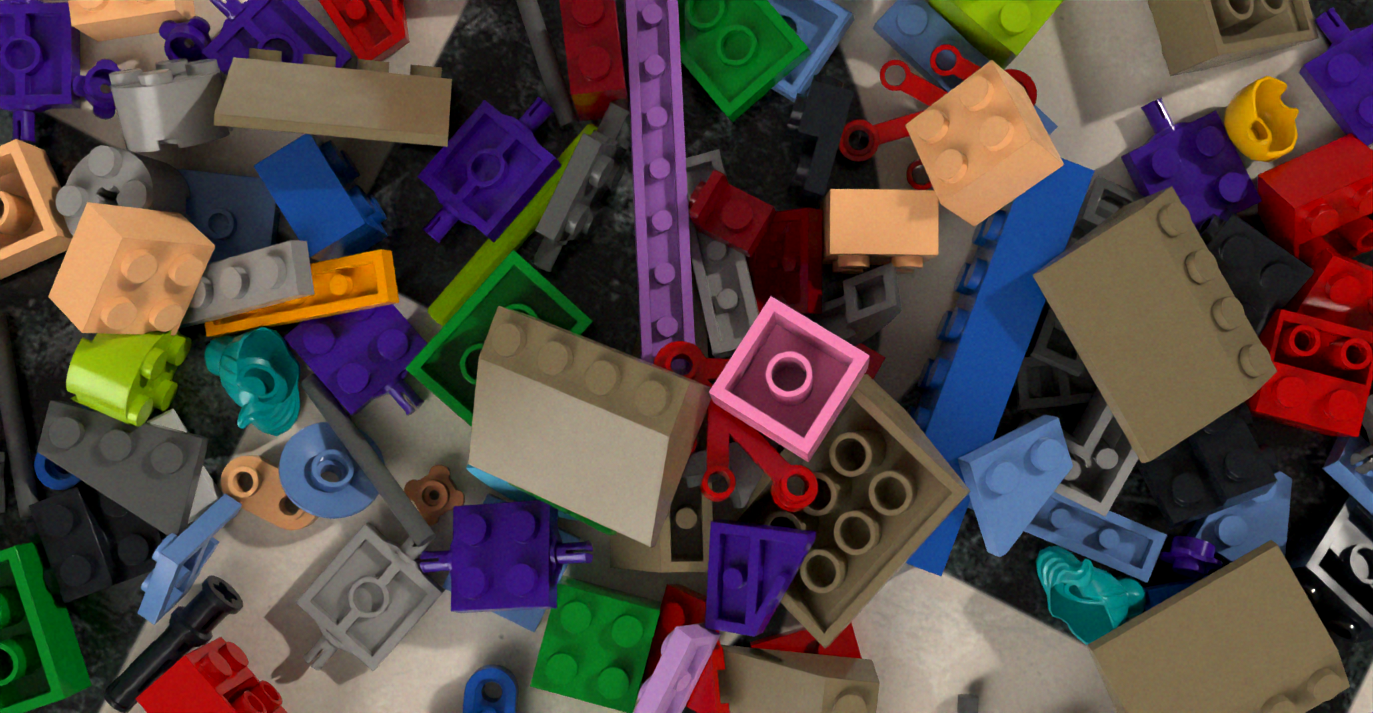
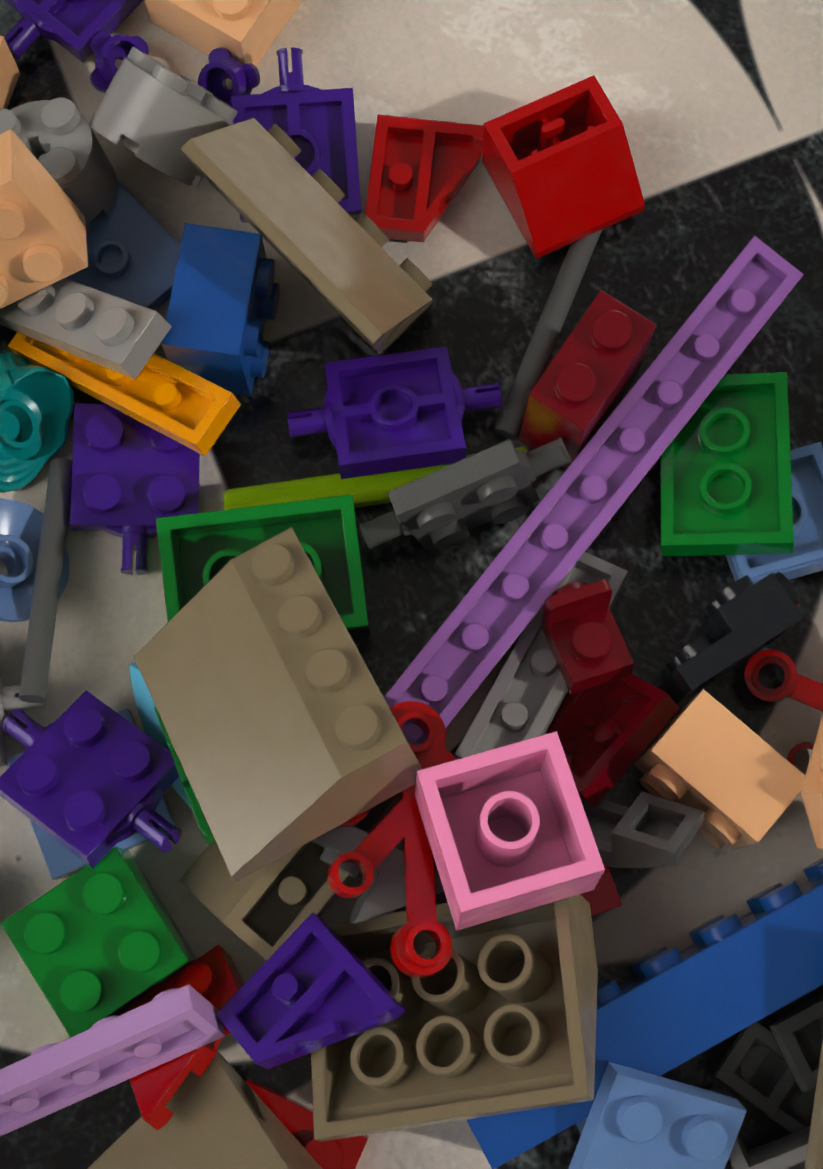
camera: 45 degrees right, 10 degrees down
(438, 480) = (95, 658): nougat plate -> none

